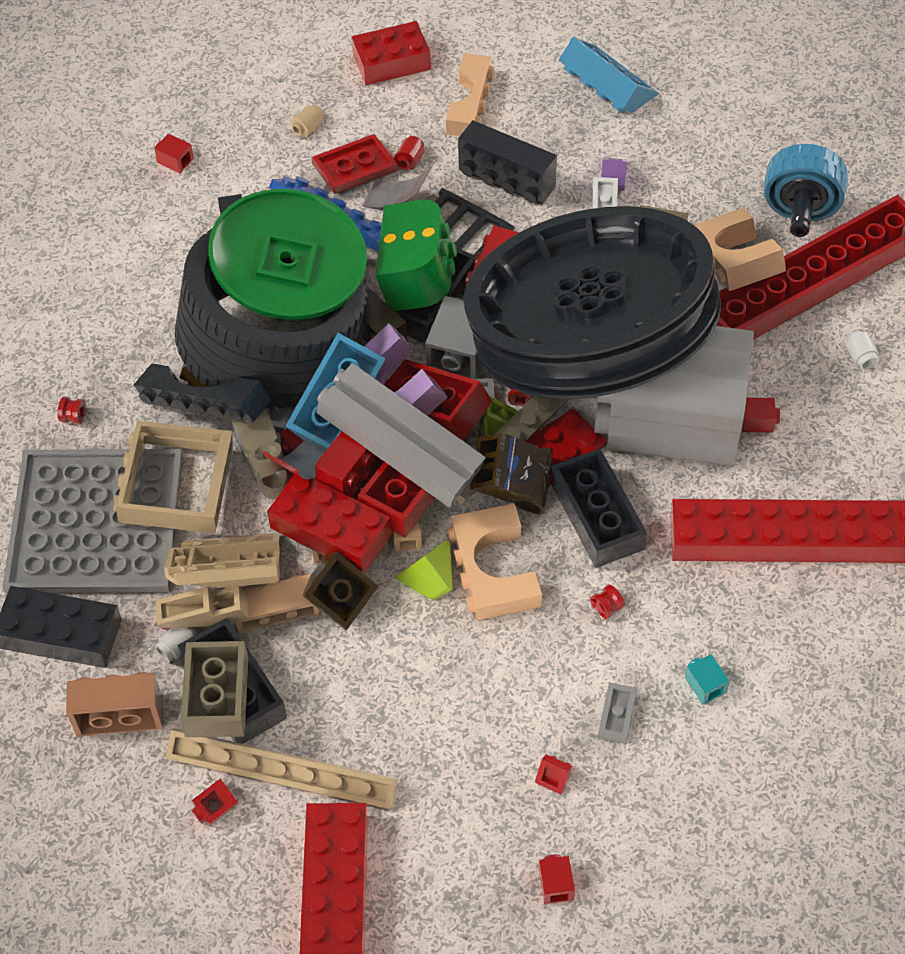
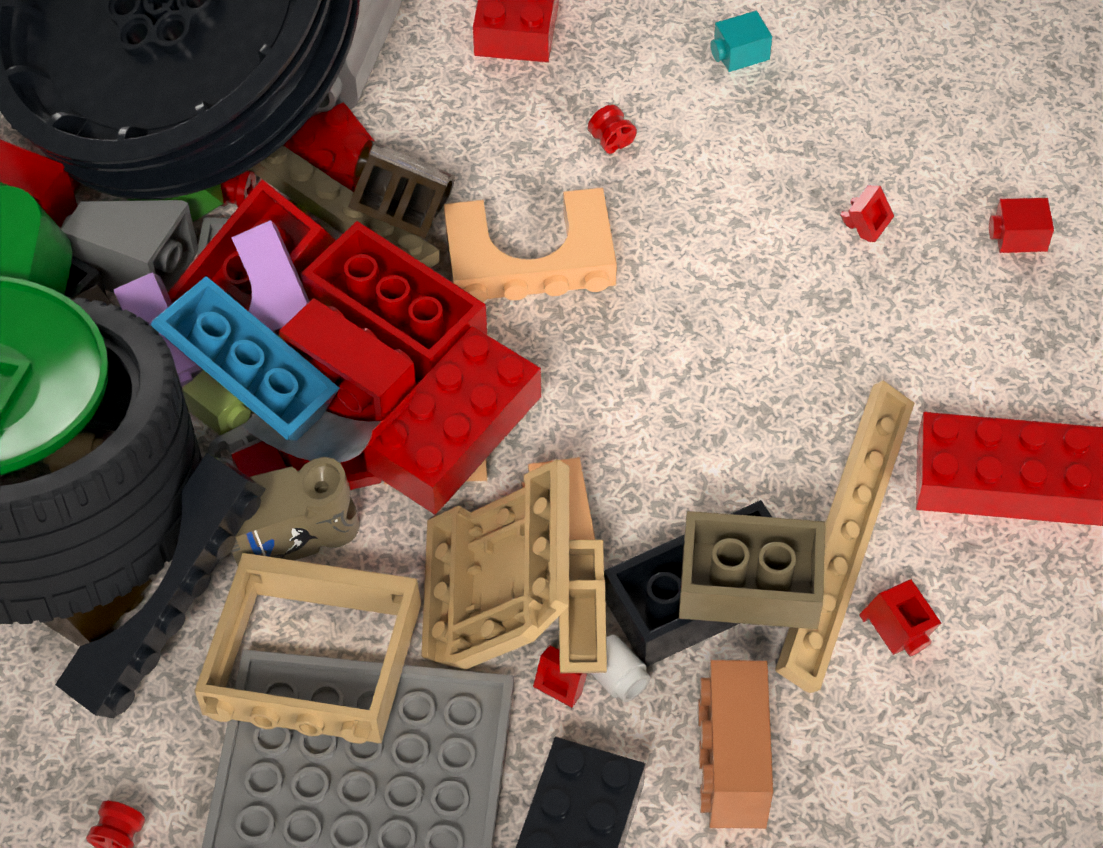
camera: 85 degrees left, 0 degrees up
(339, 589) = (562, 424): dark brown slope -> none
(399, 434) = (346, 277): light grey brick -> none
(431, 573) = (532, 323): lime slope -> none
(598, 508) = (466, 113): black brick -> none
(617, 713) = (781, 140): light grey plate -> none

